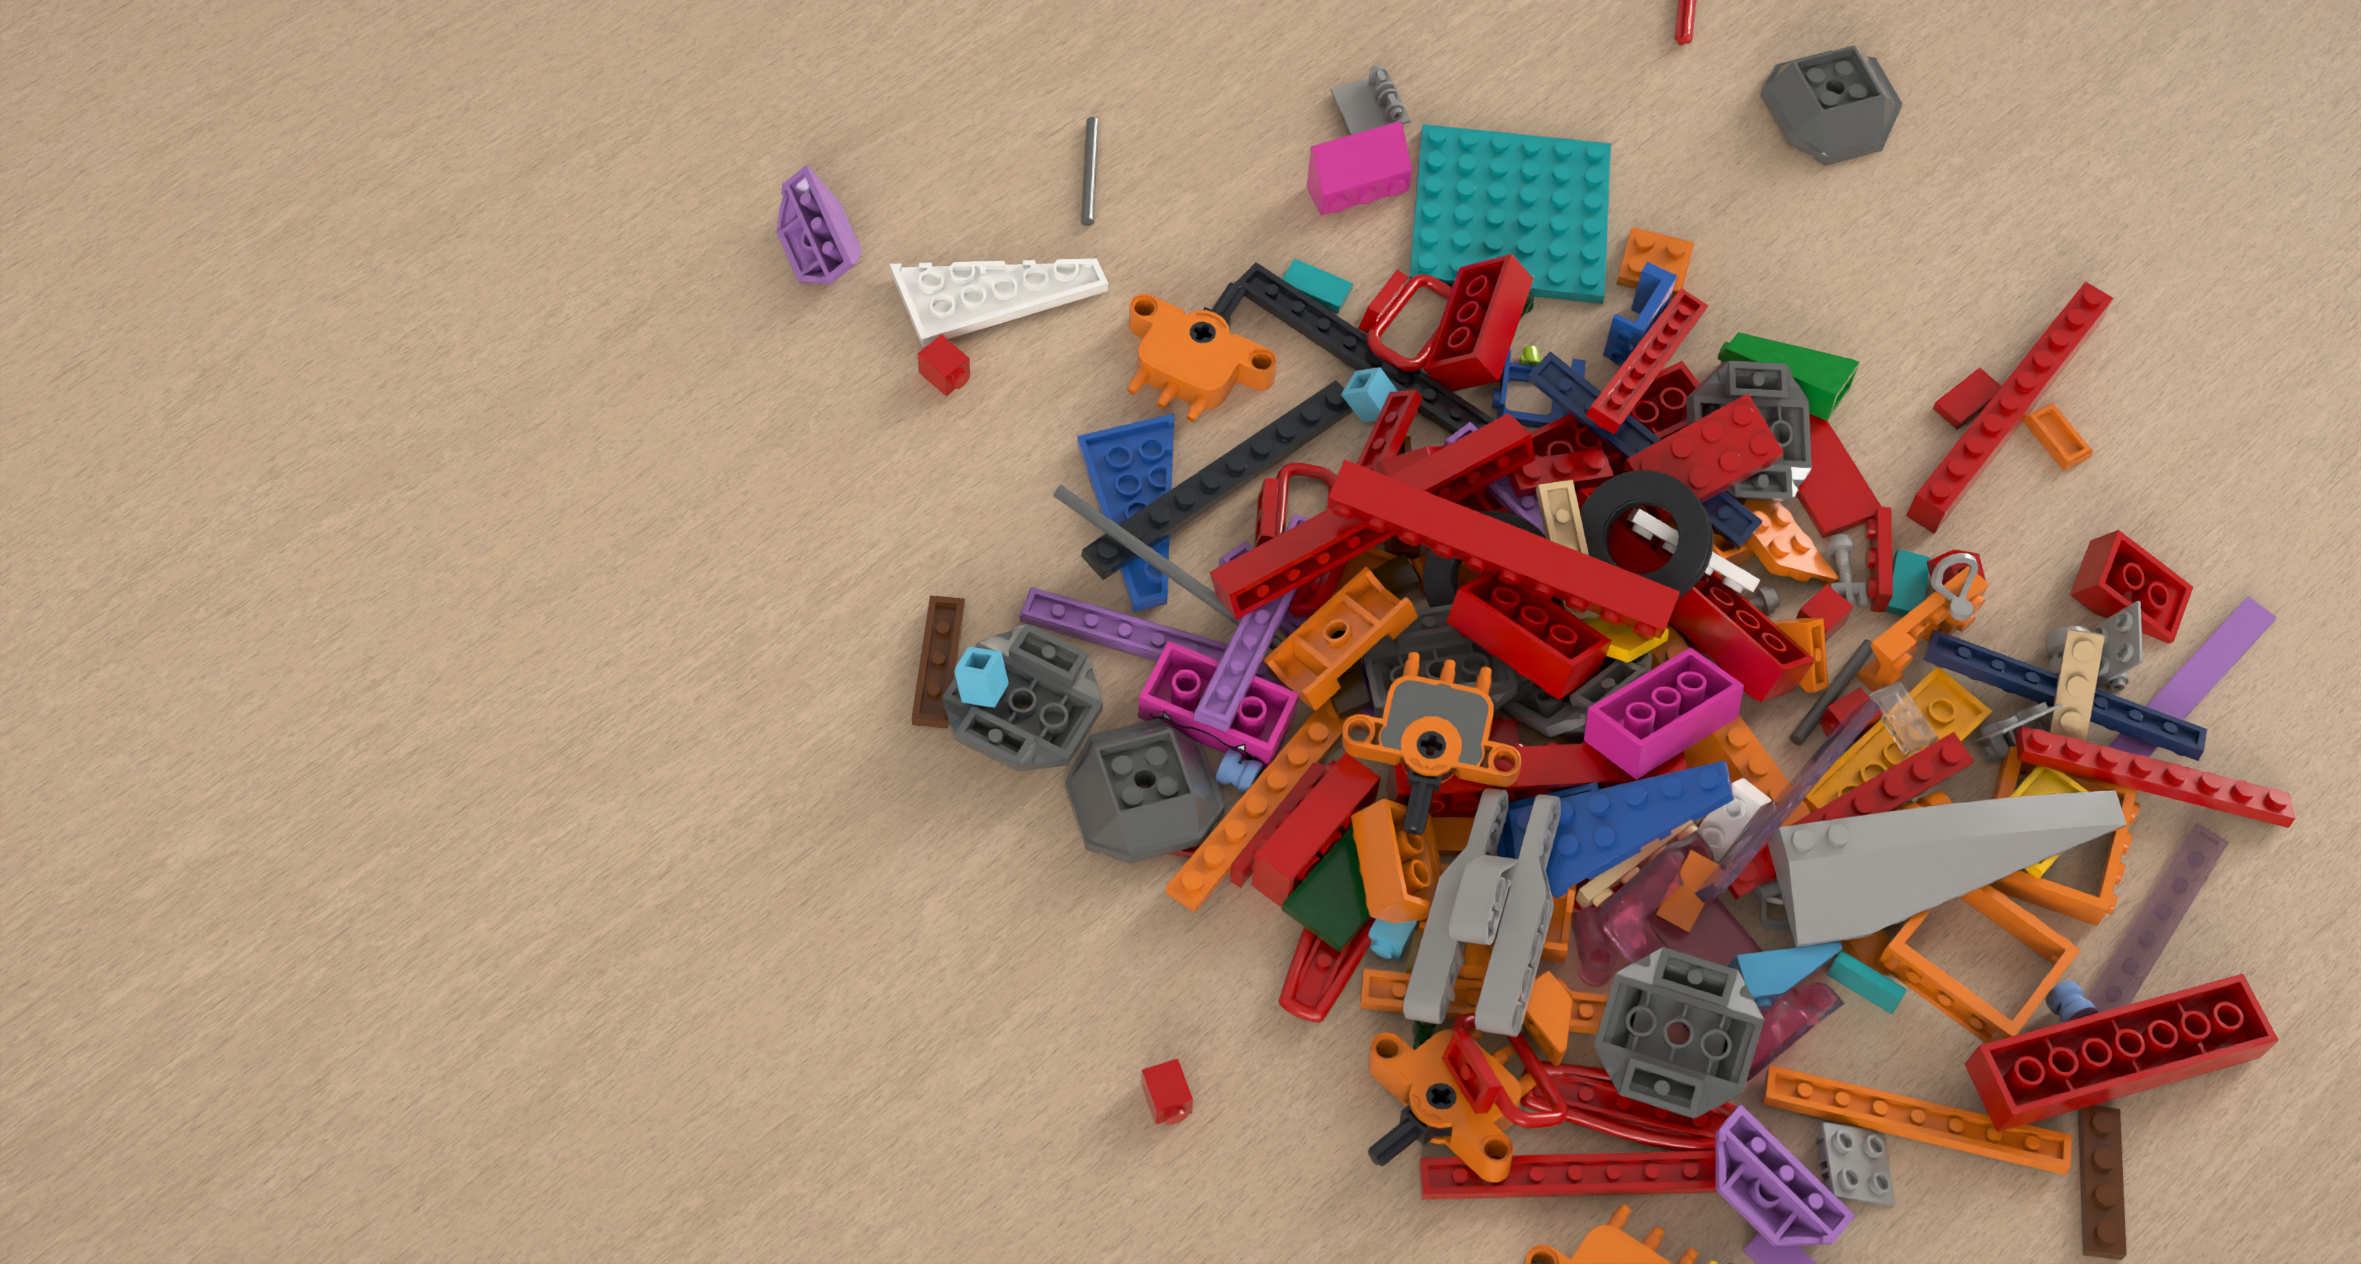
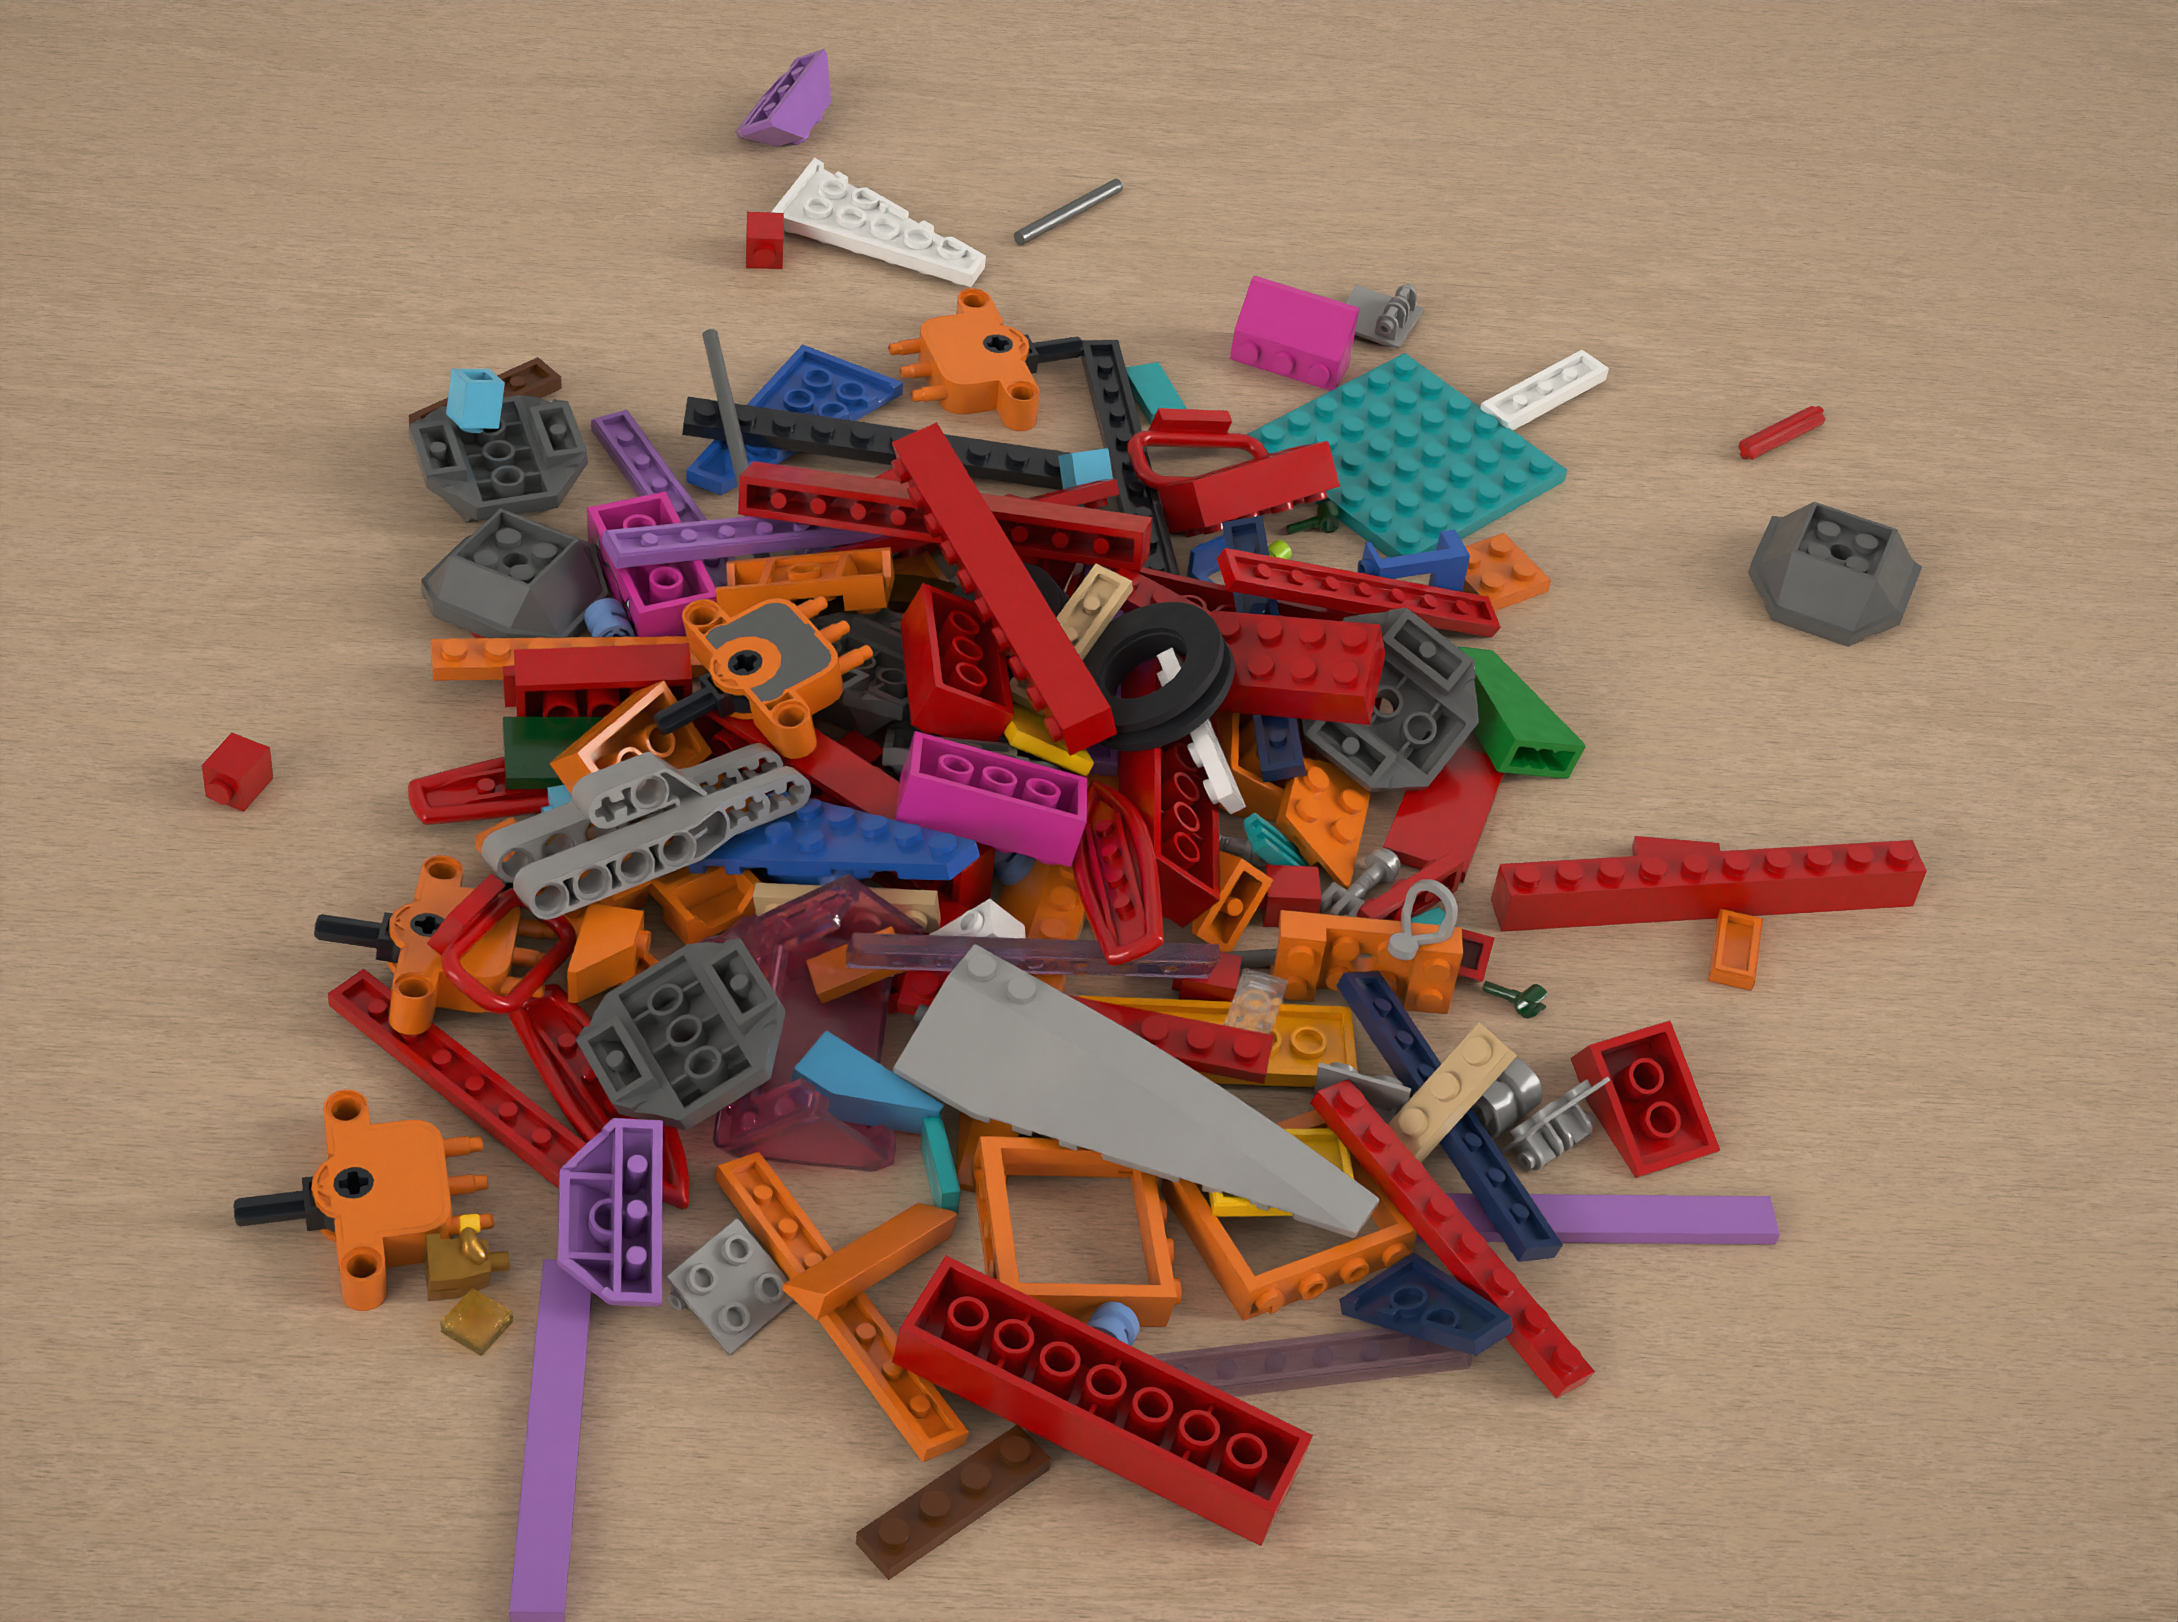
camera: 40 degrees right, 15 degrees down
(1531, 86) = (1546, 390): none -> white plate
(1787, 704) = (1118, 877): none -> red piece
(1790, 589) = (1271, 844): none -> teal tile
(1908, 1076) = (870, 1258): none -> orange slope
(2005, 572) = (1526, 1002): none -> dark green hand
(2188, 831) = (1429, 1306): none -> dark blue wing

